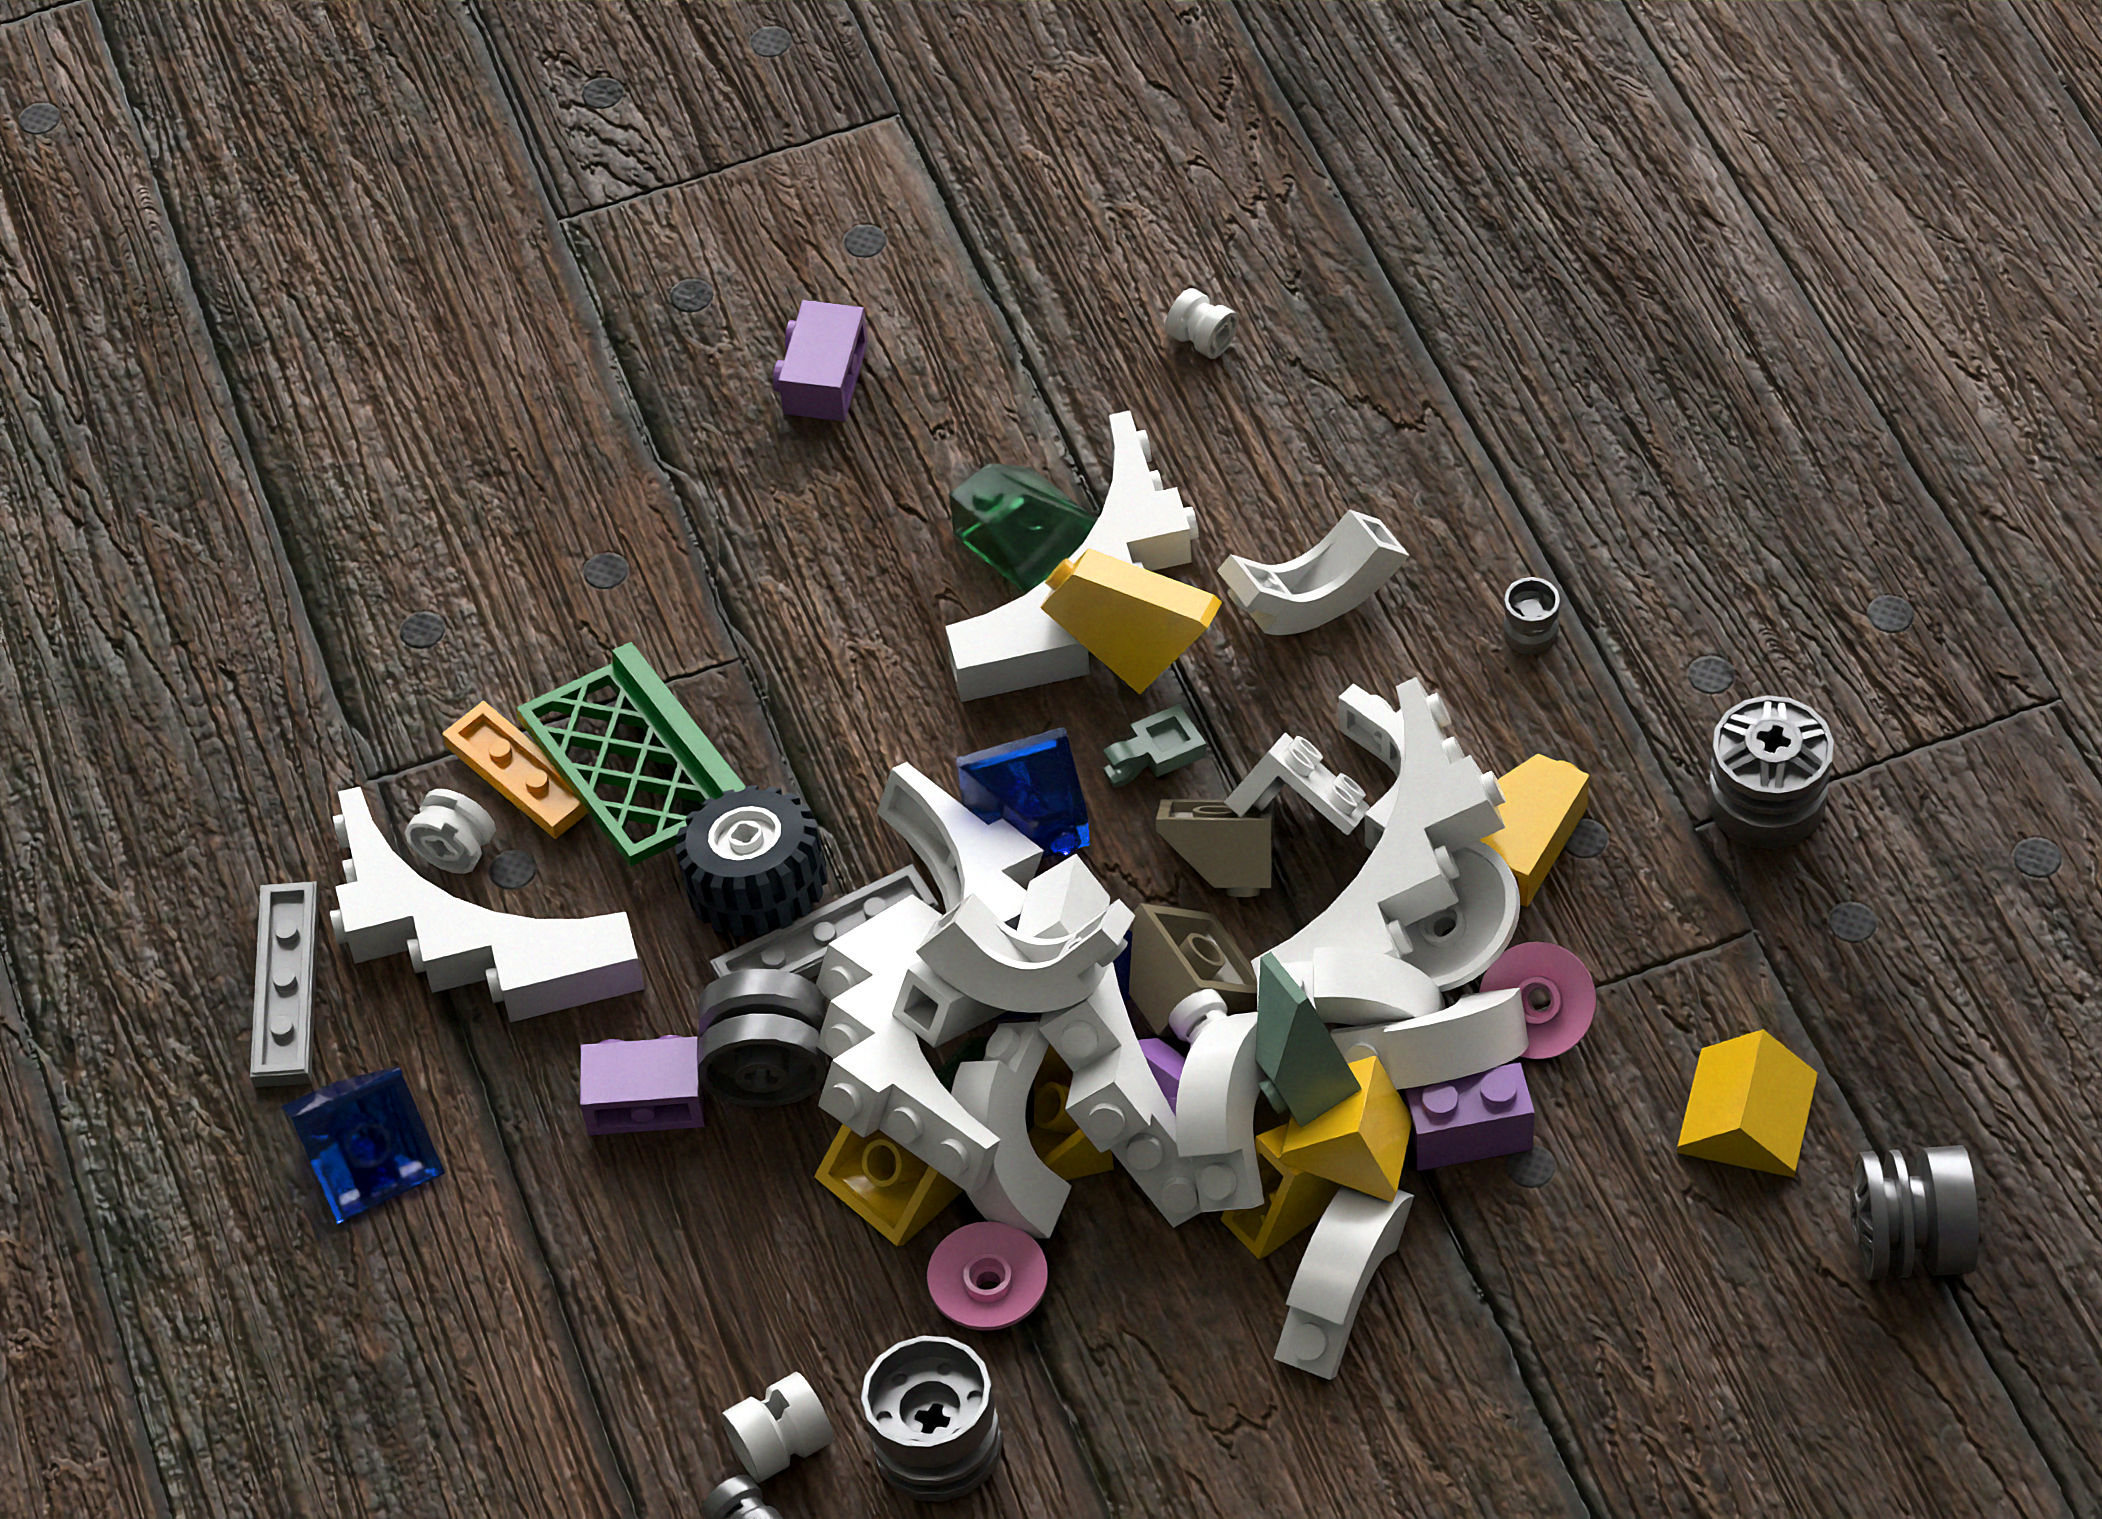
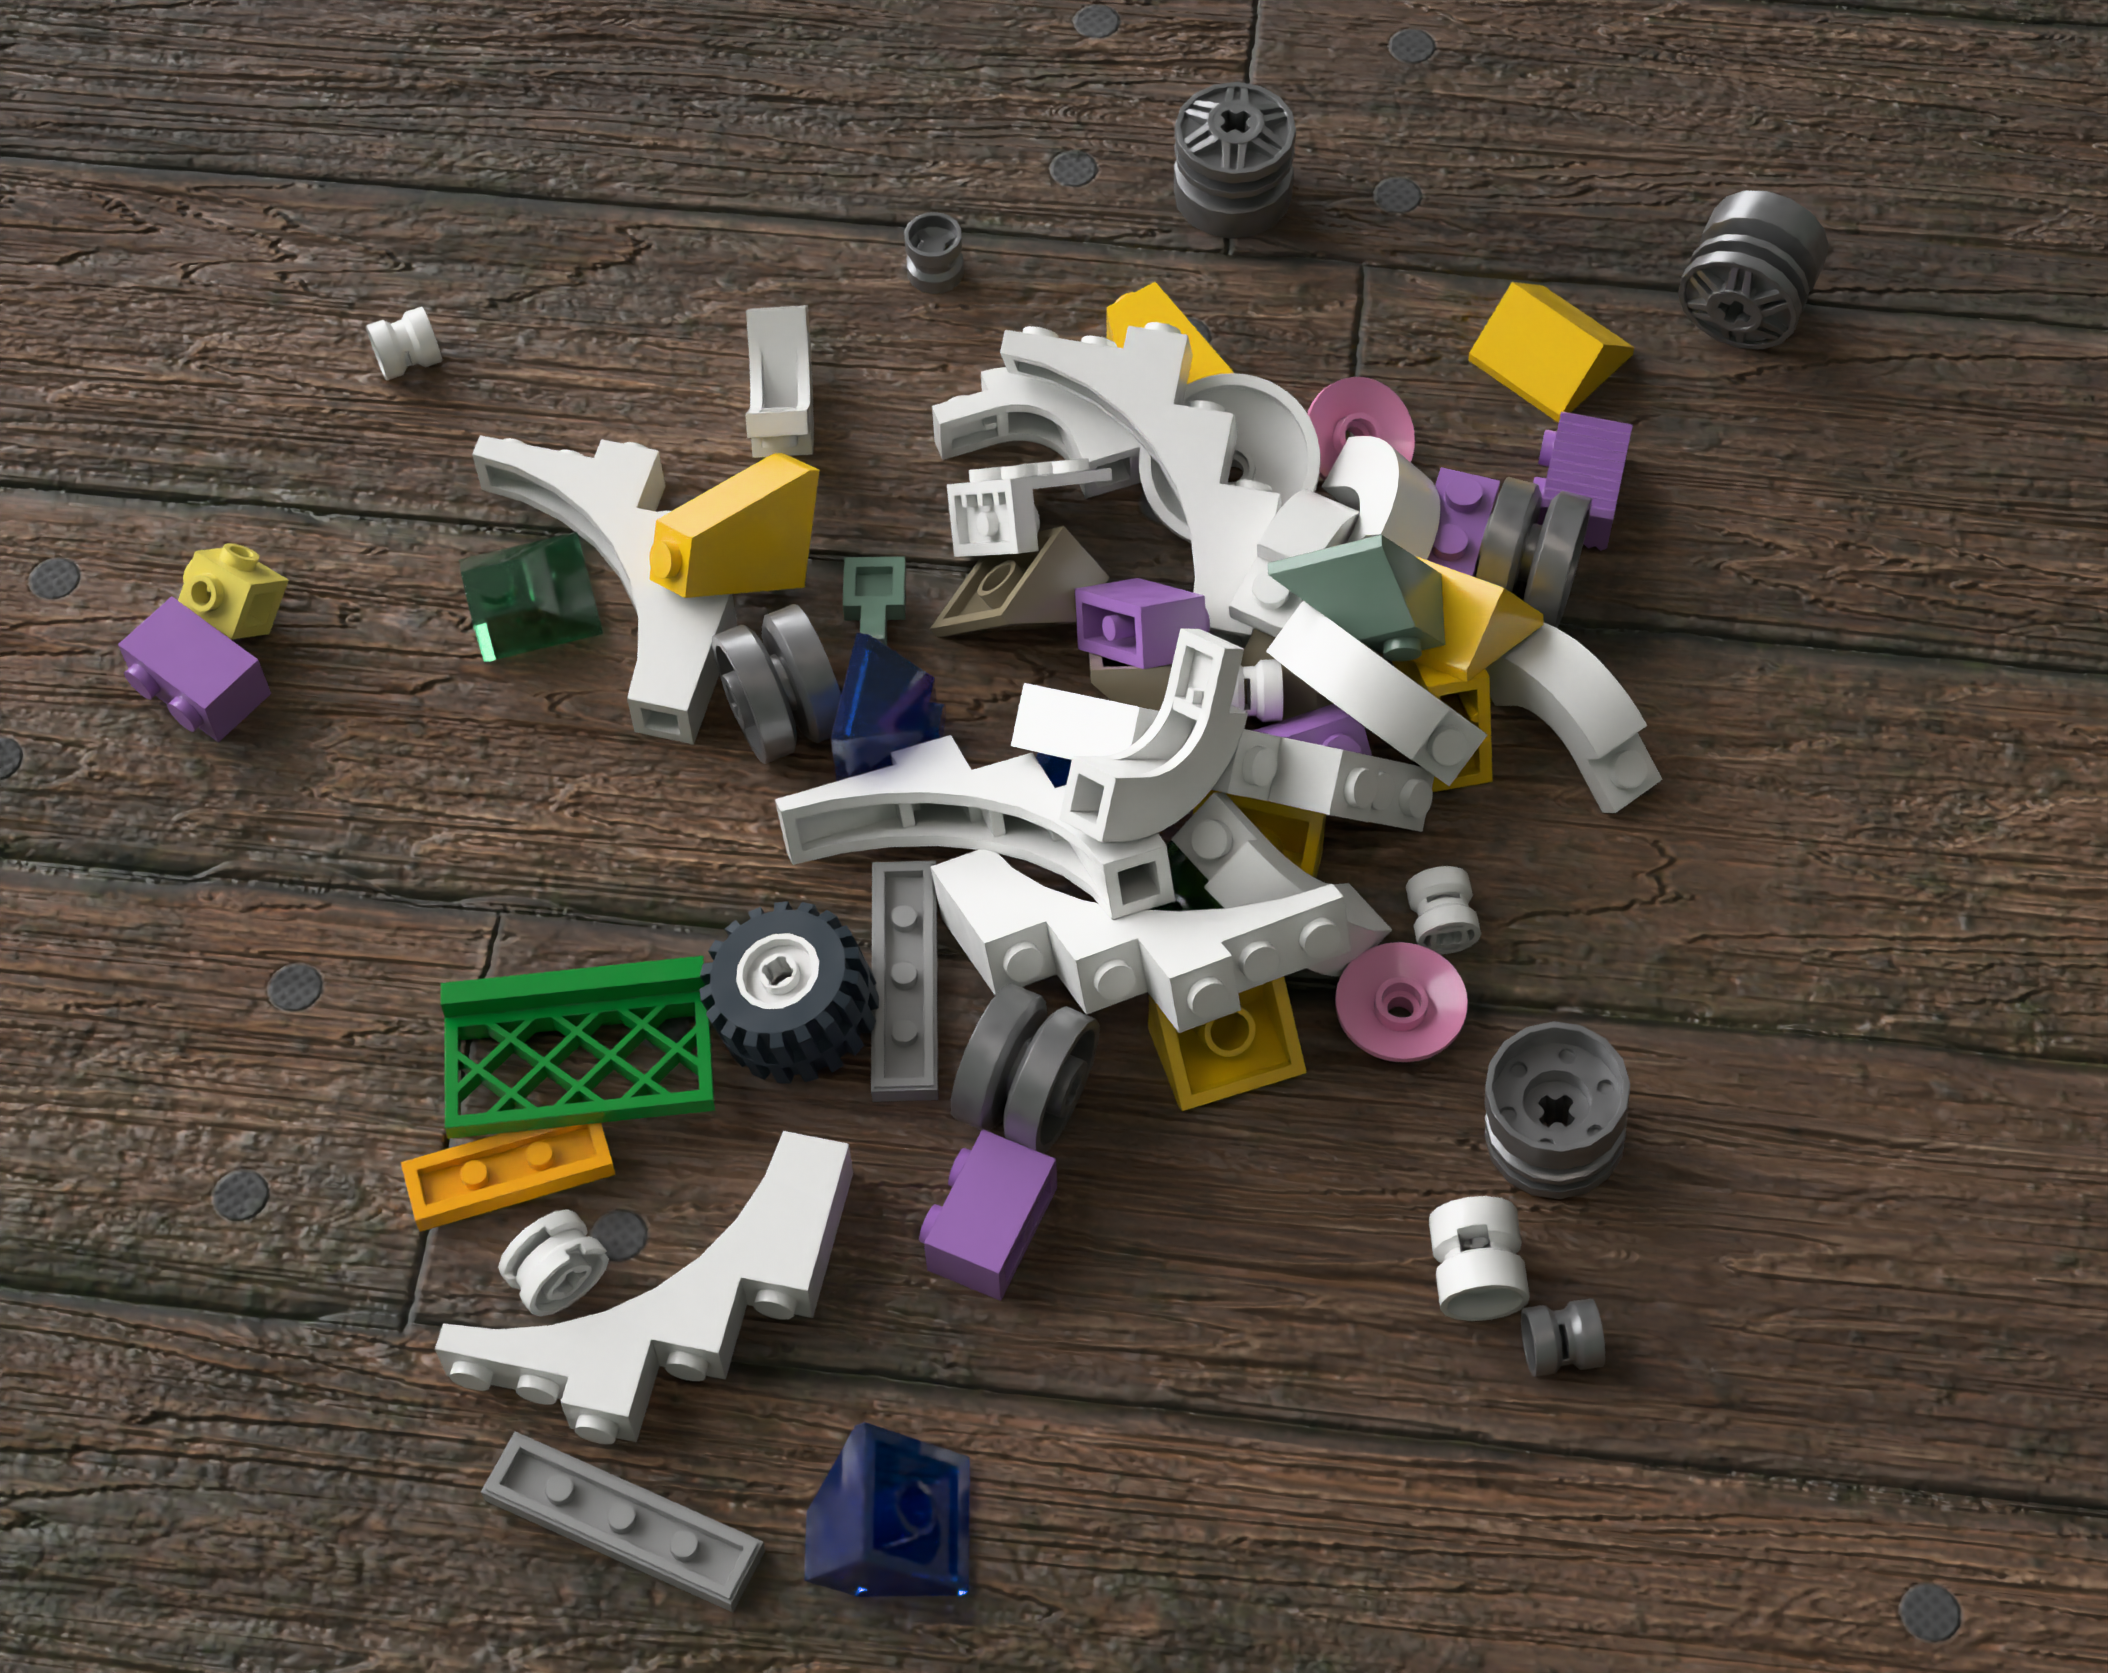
camera: 65 degrees left, 5 degrees up
(898, 343) = (233, 590): none -> light yellow brick
(1011, 699) = (778, 682): none -> flat silver wheel
(1093, 1268) = (1443, 911): none -> white wheel
(1224, 924) = (1136, 620): none -> medium lavender brick
(1476, 1170) = (1541, 555): none -> flat silver wheel
(1605, 1186) = (1586, 460): none -> medium lavender brick

